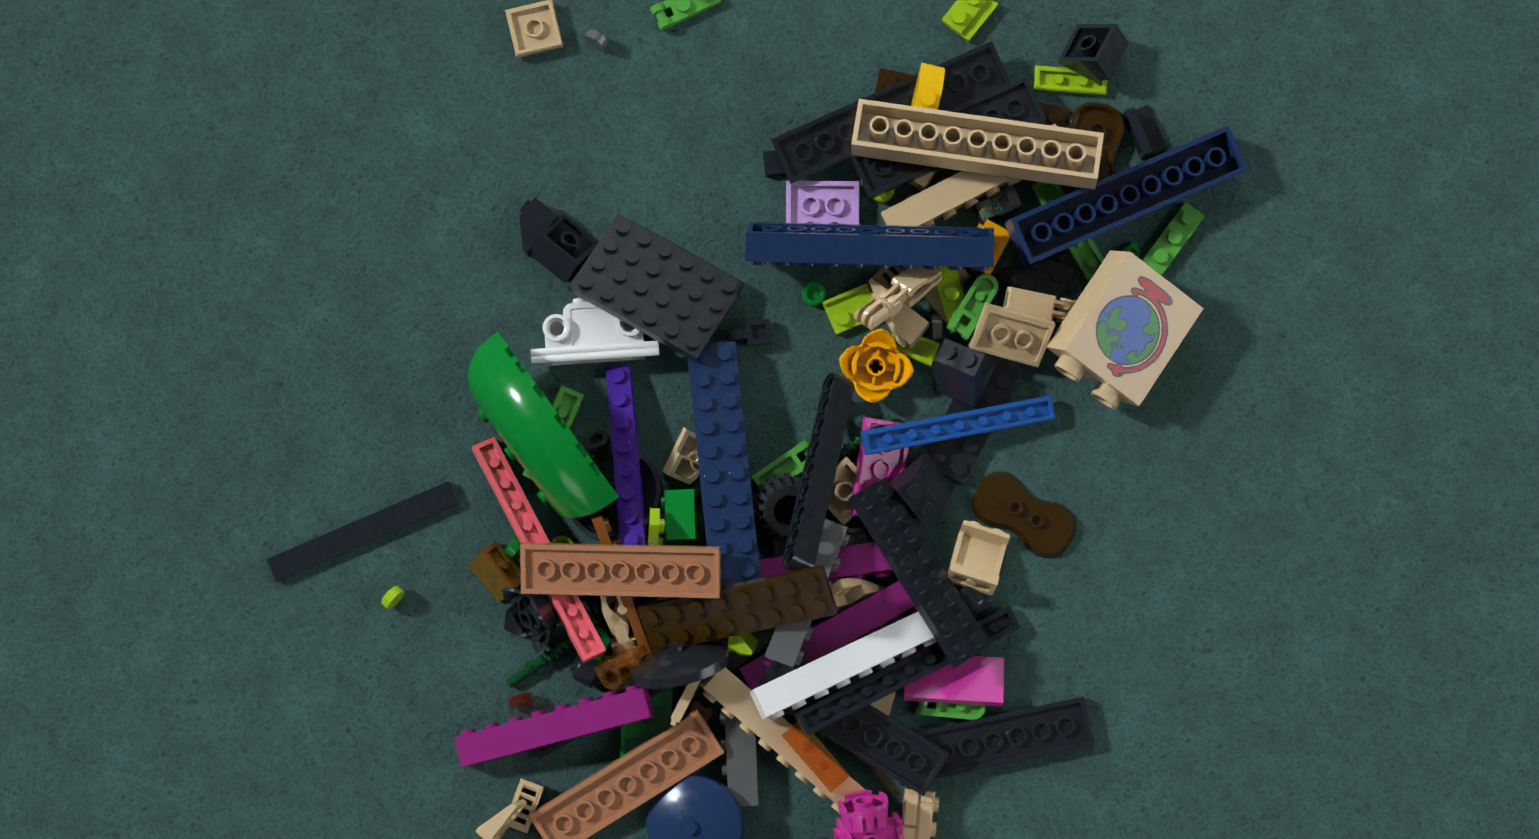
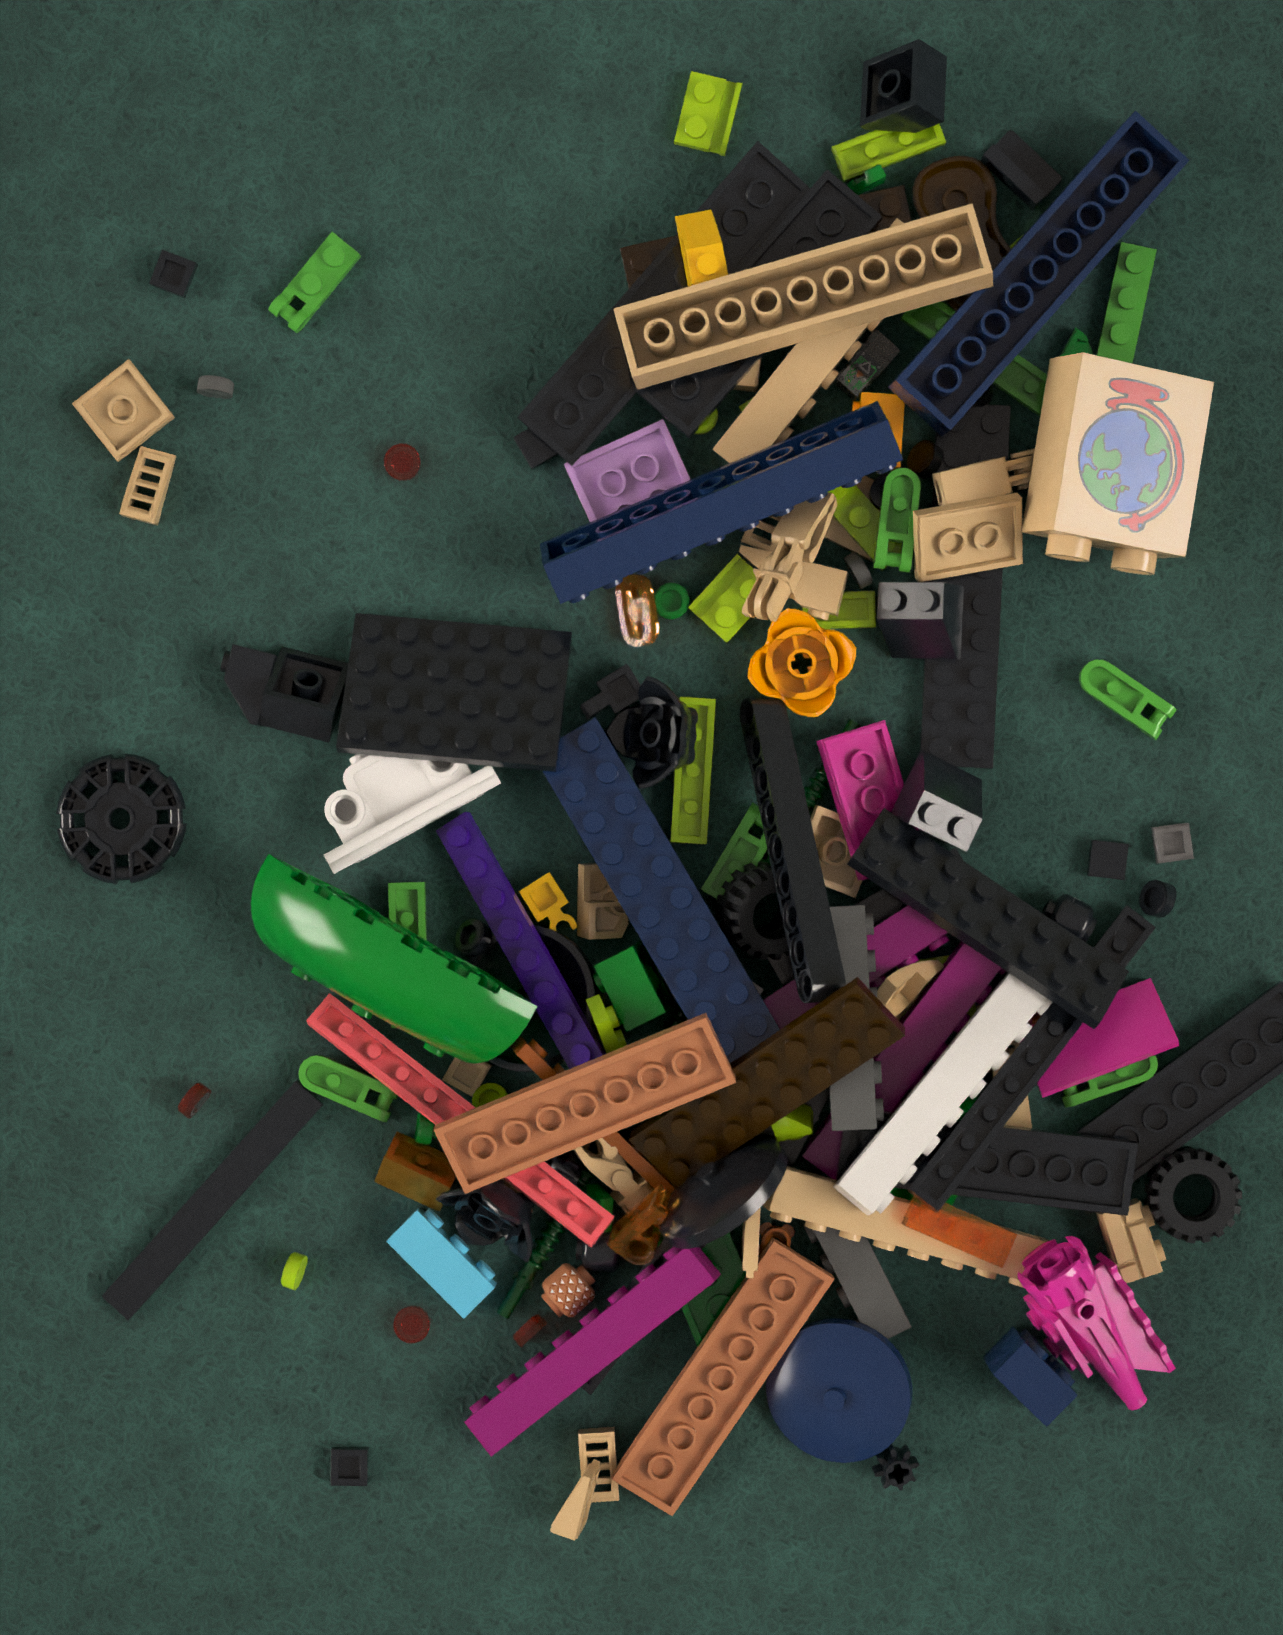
camera: 15 degrees left, 5 degrees up
(369, 735) = (349, 1466): none -> black tile
(380, 464) = (194, 1100): none -> clear red tile
(431, 276) = (143, 818): none -> black plate
(449, 664) = (411, 1324): none -> clear red tile
(477, 498) = (345, 1086): none -> bright green plate
(487, 633) = (443, 1261): none -> medium azure brick
(528, 92) = (152, 516): none -> tan slope
(555, 524) = (466, 1076): none -> tan tile
(556, 686) = (568, 1290): none -> nougat head
(653, 440) = (545, 900): none -> yellow plate
(688, 136) = (402, 462): none -> clear red tile
(767, 368) = (655, 734): none -> black brick
(779, 402) = (694, 780): none -> lime plate
(790, 290) = (637, 610): none -> clear orange plate
(957, 425) = (948, 693): blue tile -> none
(978, 557) = (1056, 859): tan panel -> none
(991, 803) = (1215, 1216): none -> black tyre
(1007, 505) = (1064, 768): dark brown plate -> none
(1011, 573) = (1107, 859): none -> black tile
(1030, 610) = (1157, 898): none -> black tile
(1052, 95) = (873, 177): none -> green tile
(1054, 581) = (1172, 843): none -> flat silver tile
(1065, 477) = (1125, 696): none -> bright green plate

